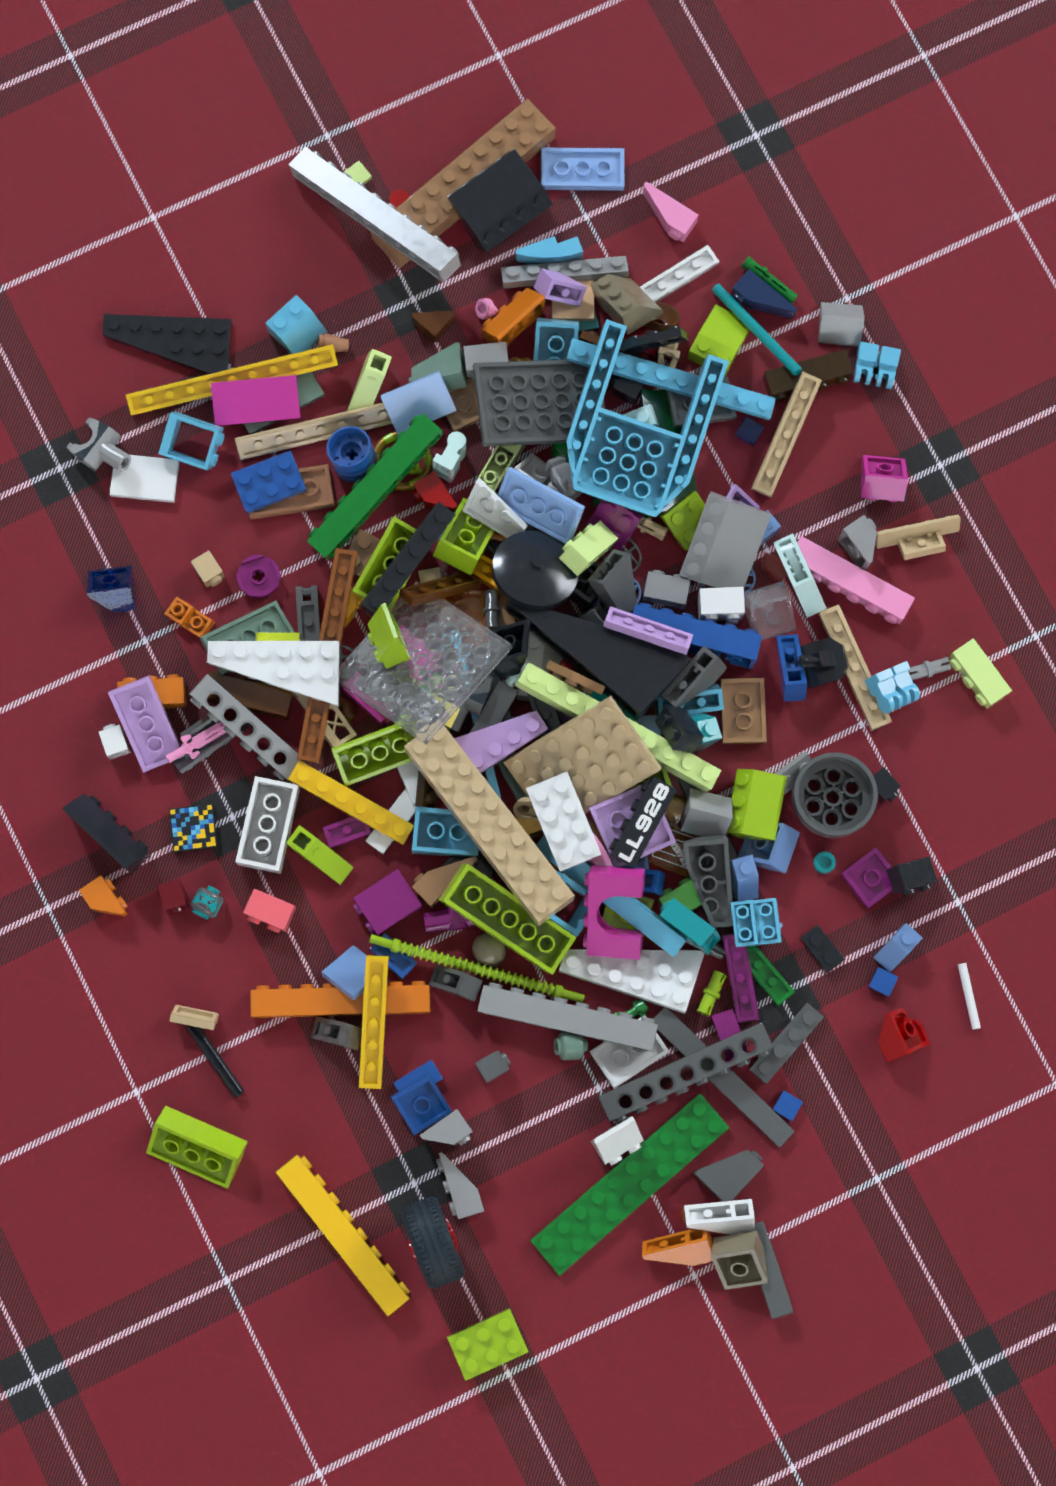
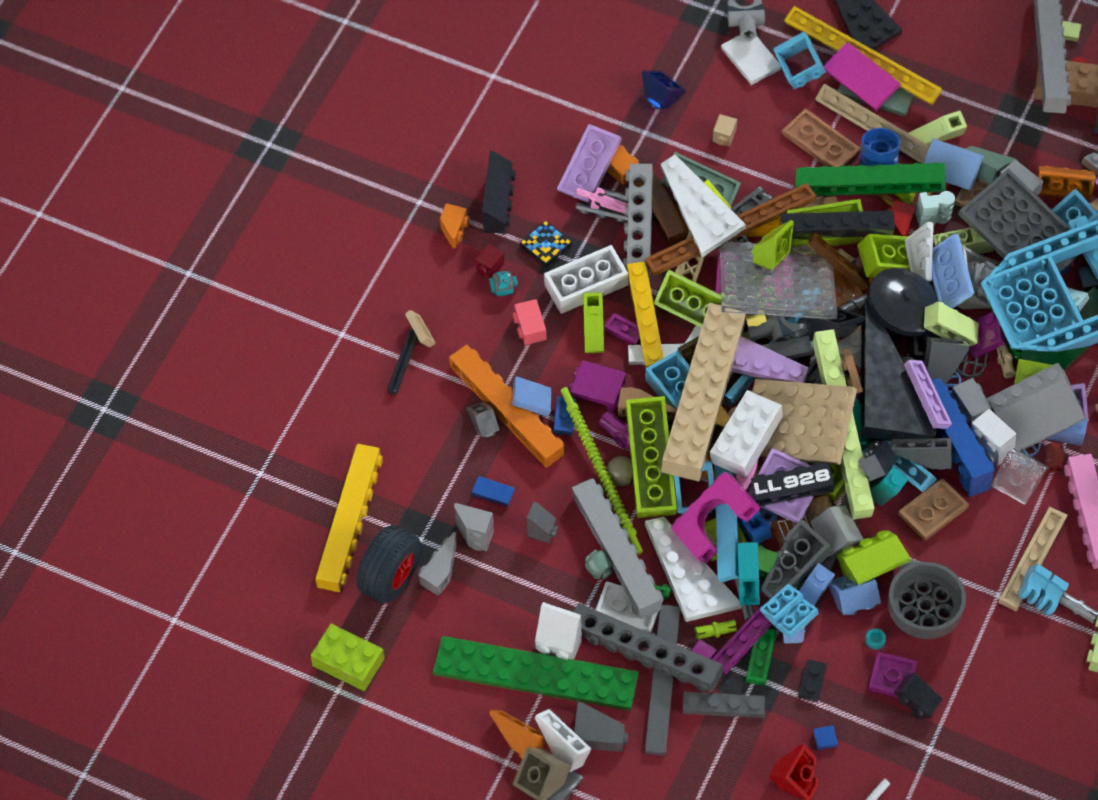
camera: 60 degrees right, 20 degrees down
(114, 741) = (560, 158): white brick -> none
(189, 618) = (683, 141): orange slope -> none
(196, 1147) = (334, 390): lime slope -> none
(265, 566) = (743, 170): magenta plate -> none
(268, 482) = (815, 122): blue plate -> none
(295, 326) = (934, 64): medium azure slope -> none
(340, 344) = (945, 96): nougat cone -> none
(348, 708) = (708, 273): reddish brown arm -> none
(373, 1022) = (508, 428): yellow plate -> none
(421, 1104) = (480, 496): blue tile -> none
(434, 323) = (1017, 141): reddish brown slope -> none
(455, 982) = (580, 465): dark grey slope -> none
(485, 308) = (1056, 161): bright pink tile -> none
(787, 1105) = (679, 736): blue tile -> none
(792, 676) = (992, 517): blue slope -> none
(800, 575) = (1058, 473): light aqua arch -> none
(823, 662) = (1017, 534): black piece -> none
(886, 786) = (966, 635): black brick -> none
(897, 947) = (859, 727): medium blue slope -> none

